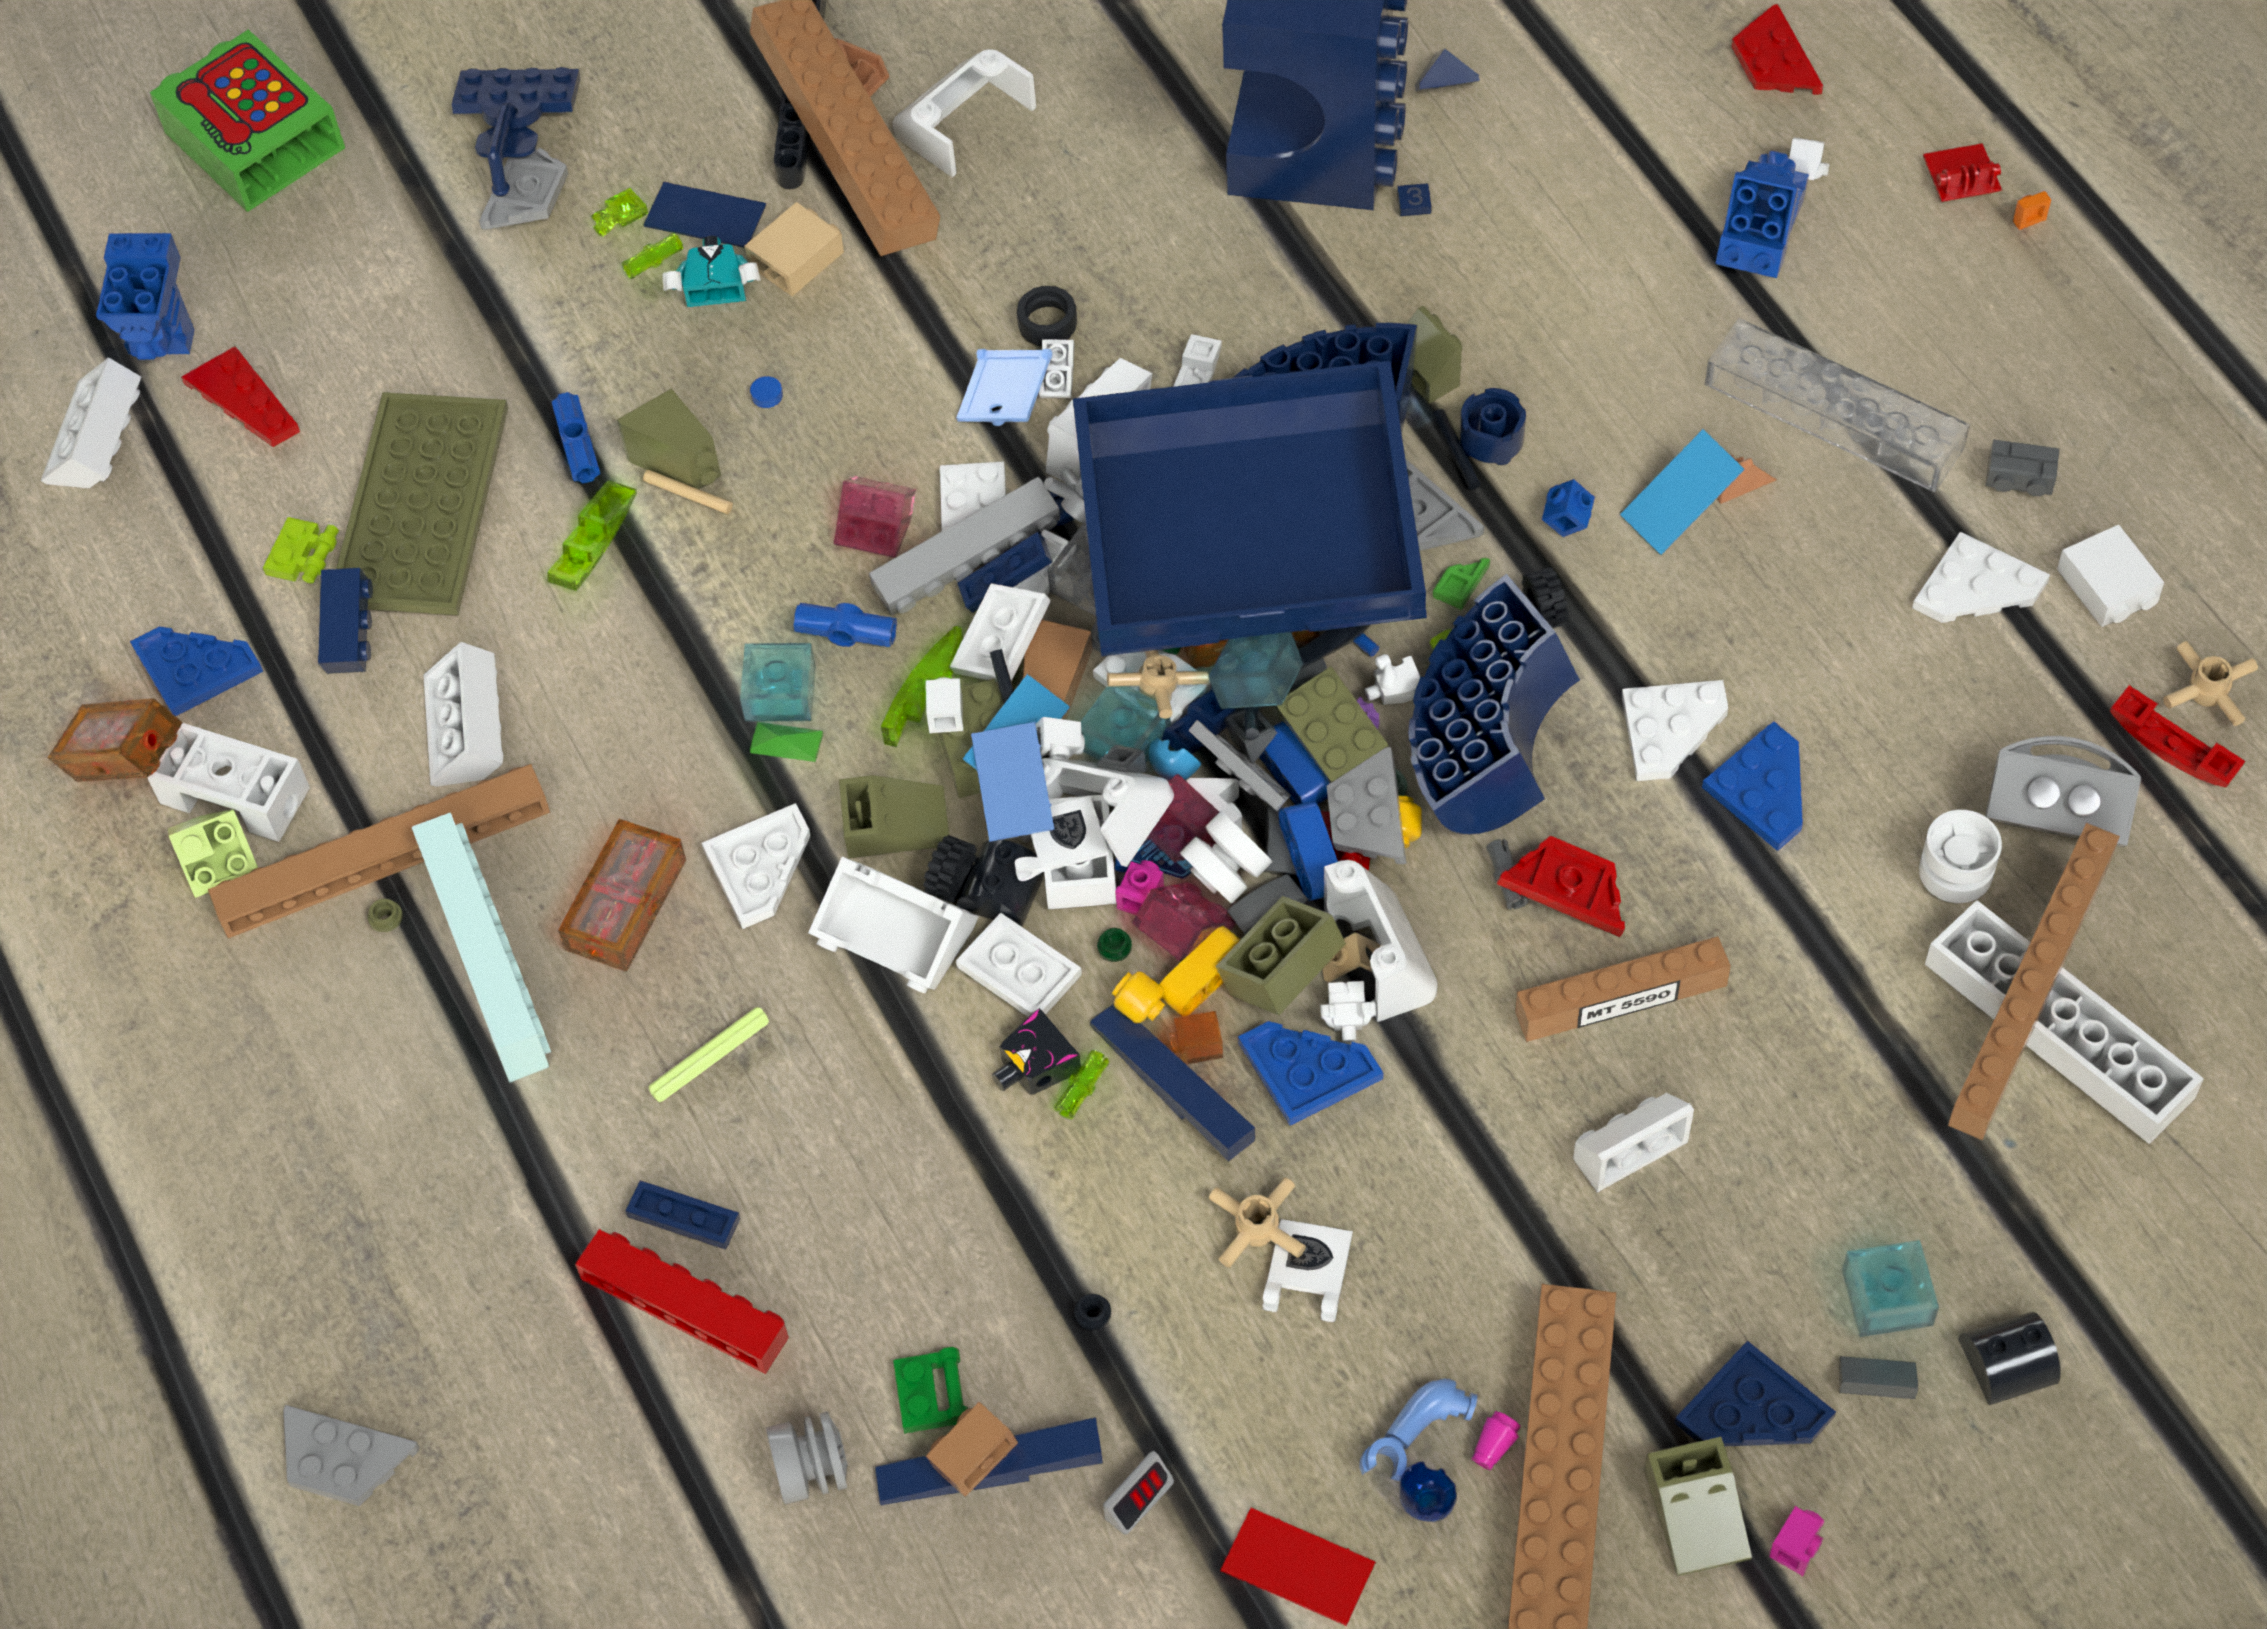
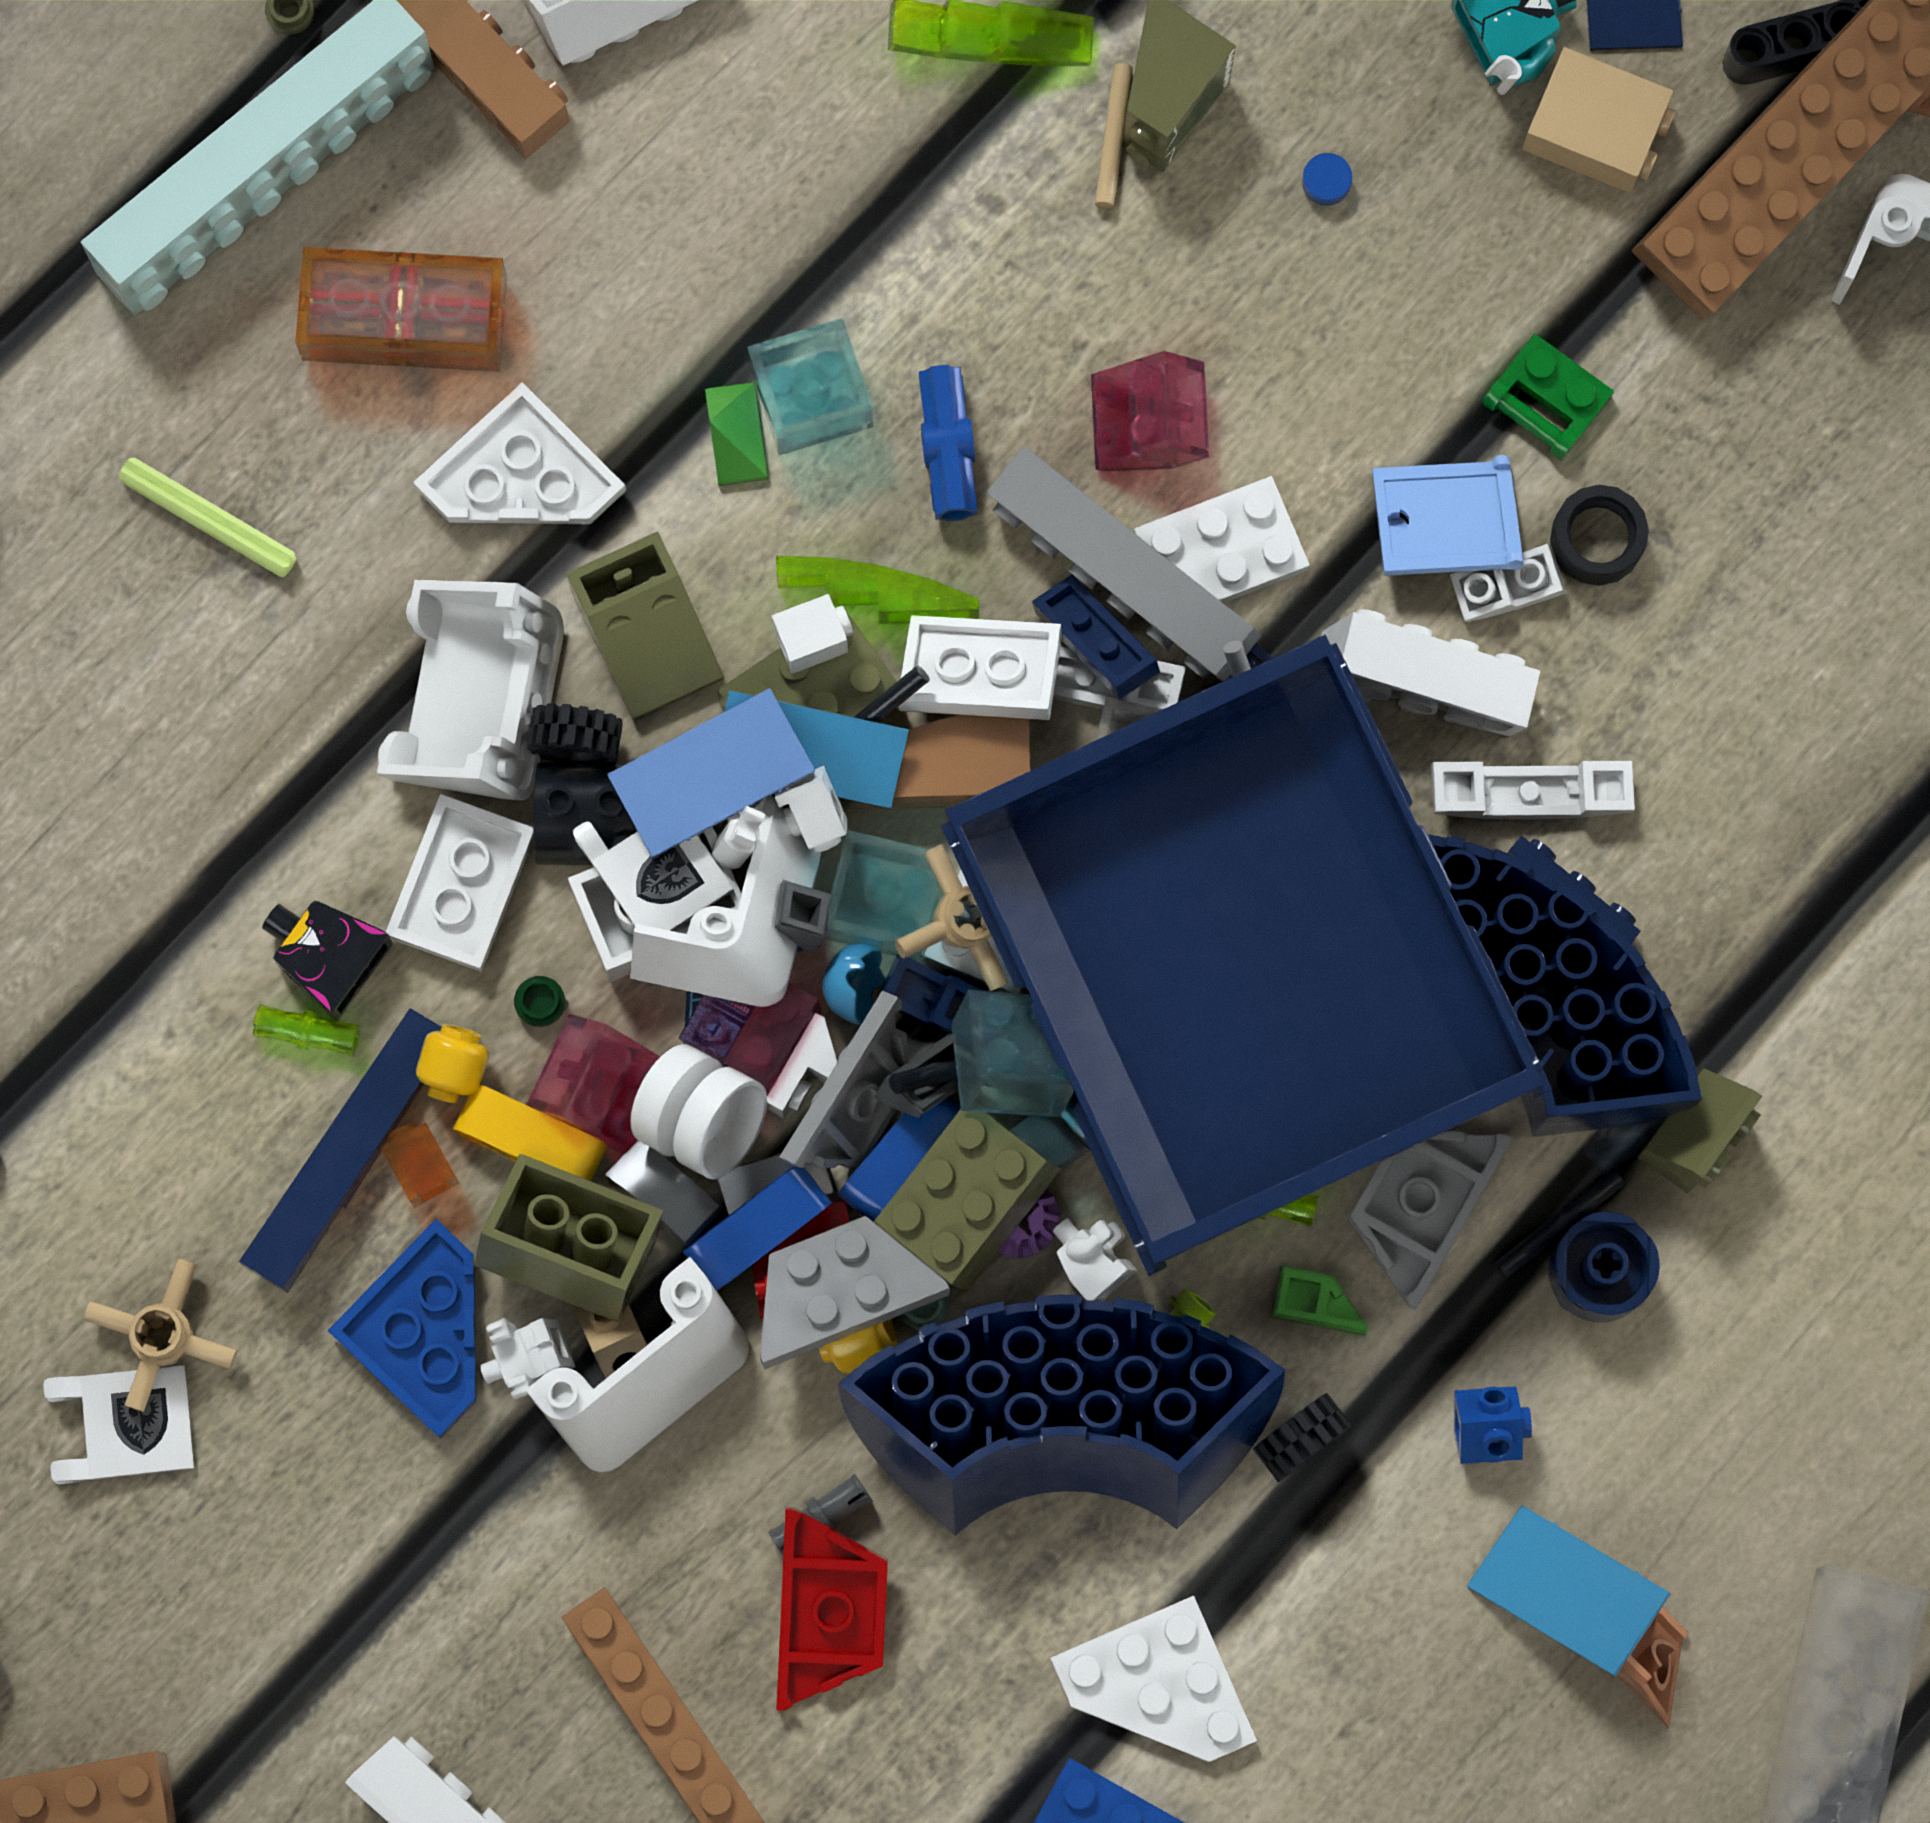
camera: 65 degrees right, 20 degrees up
(947, 314) = (1555, 384): none -> green plate
(1062, 774) = (738, 839): none -> white bar
(1137, 884) = (648, 1023): dark pink brick -> none

